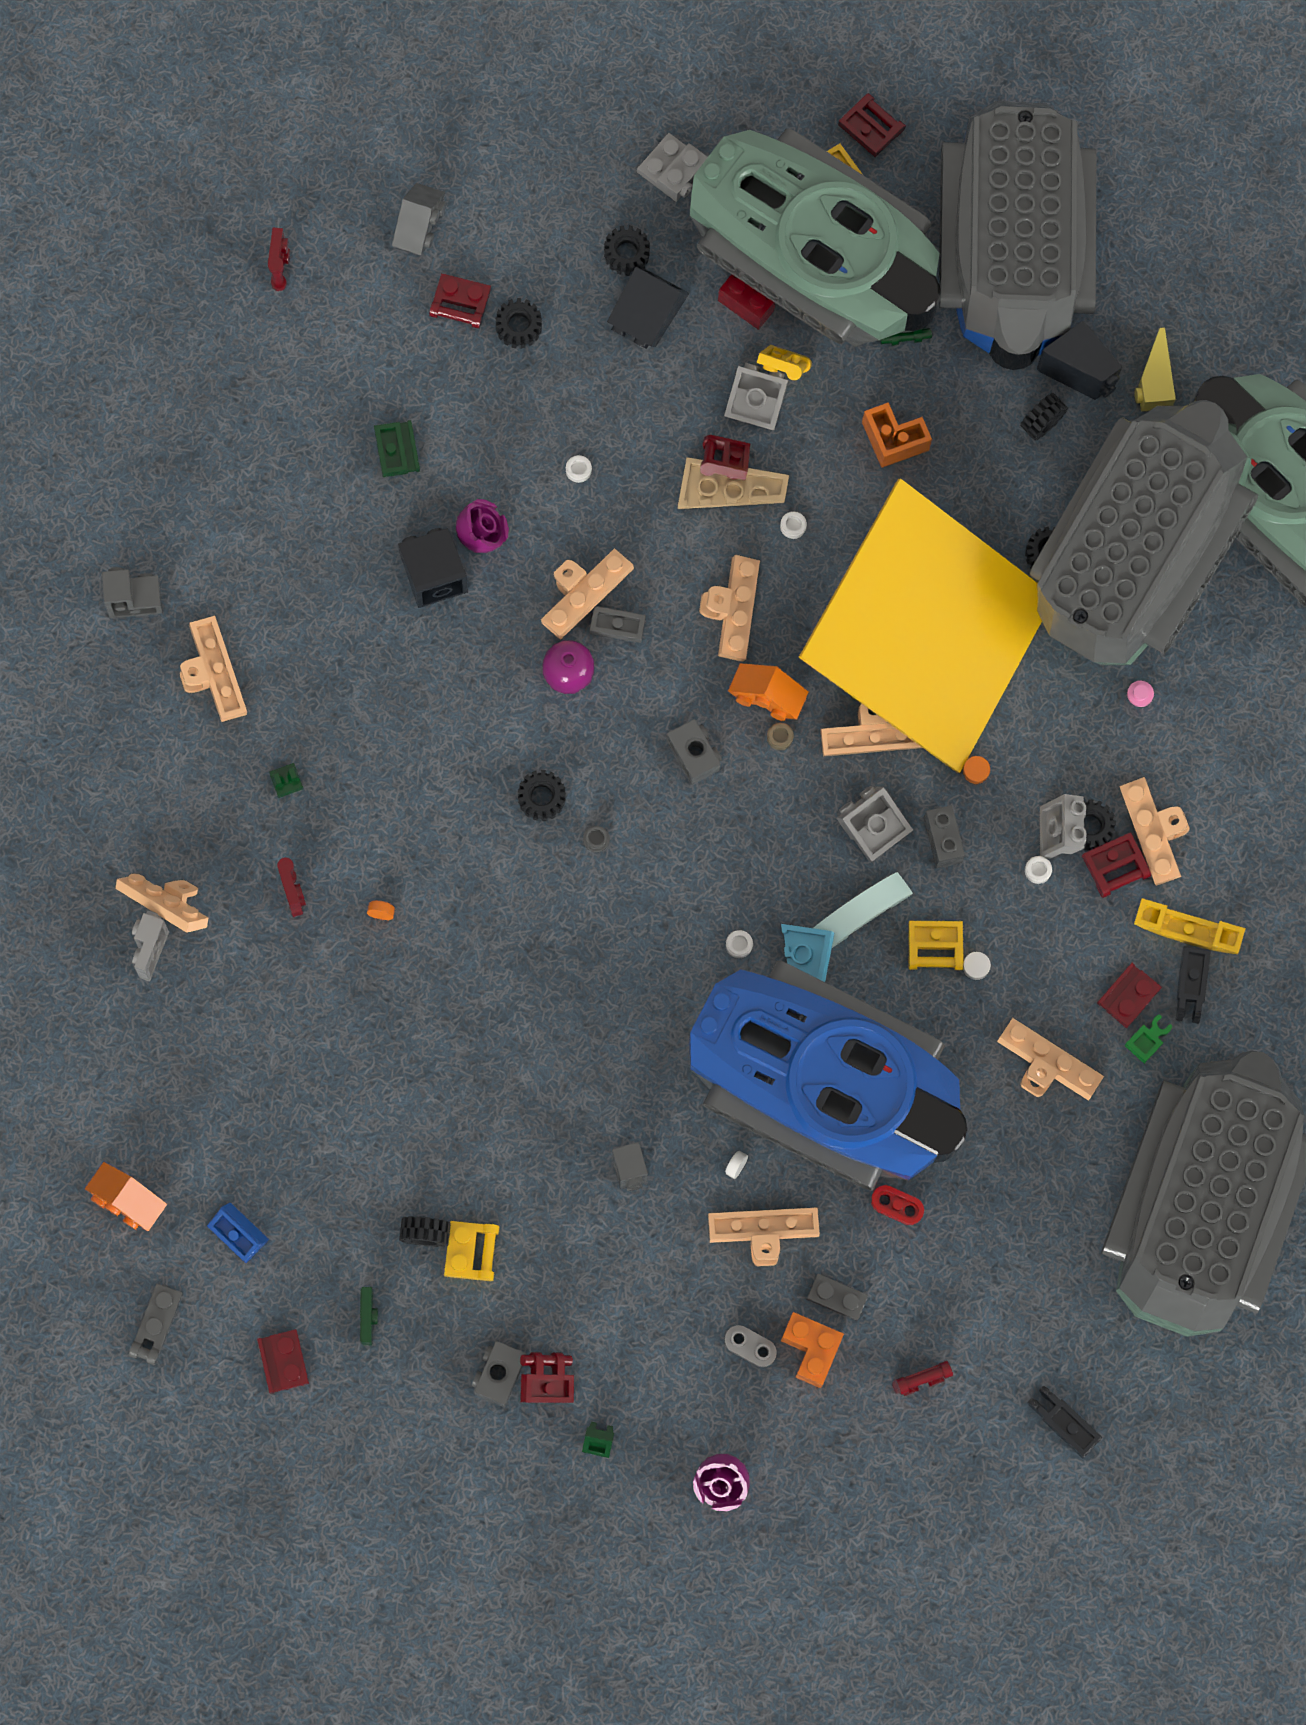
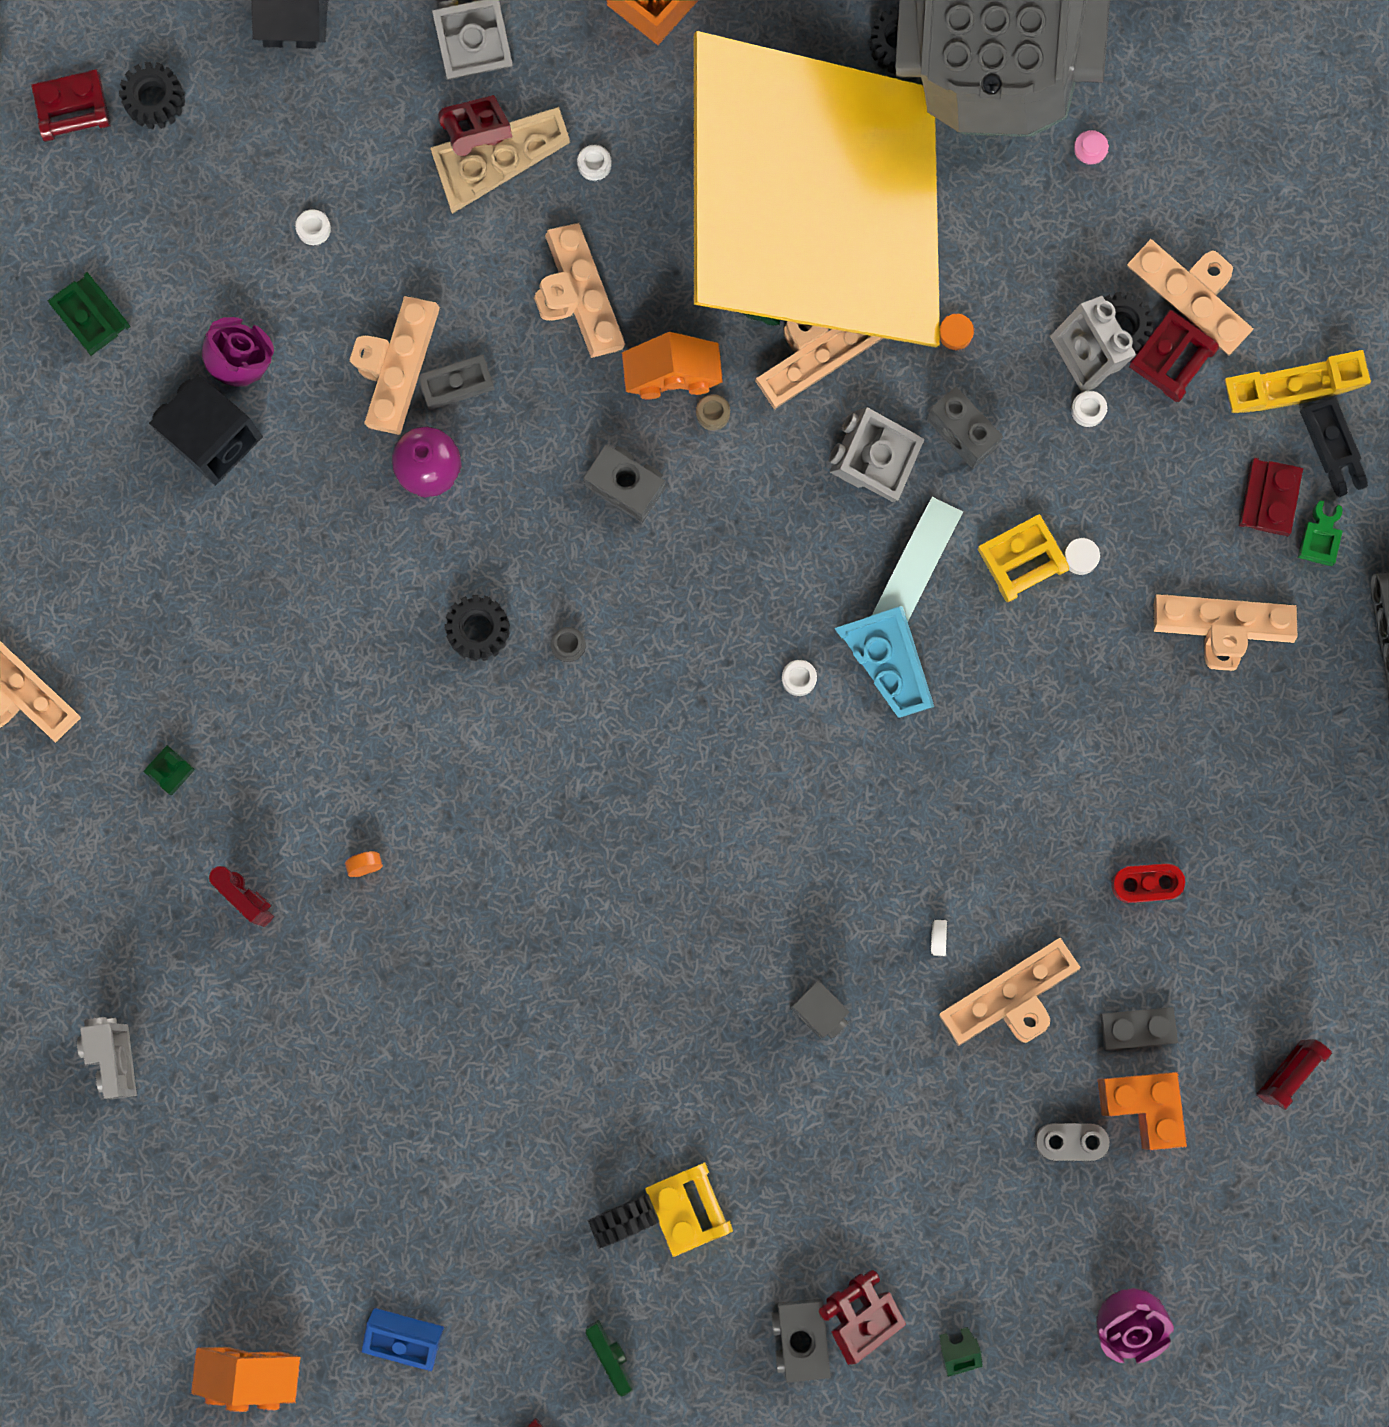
camera: 20 degrees left, 5 degrees up
(166, 903) = (105, 998): light nougat plate -> none
(826, 1076) = (996, 782): blue piece -> none

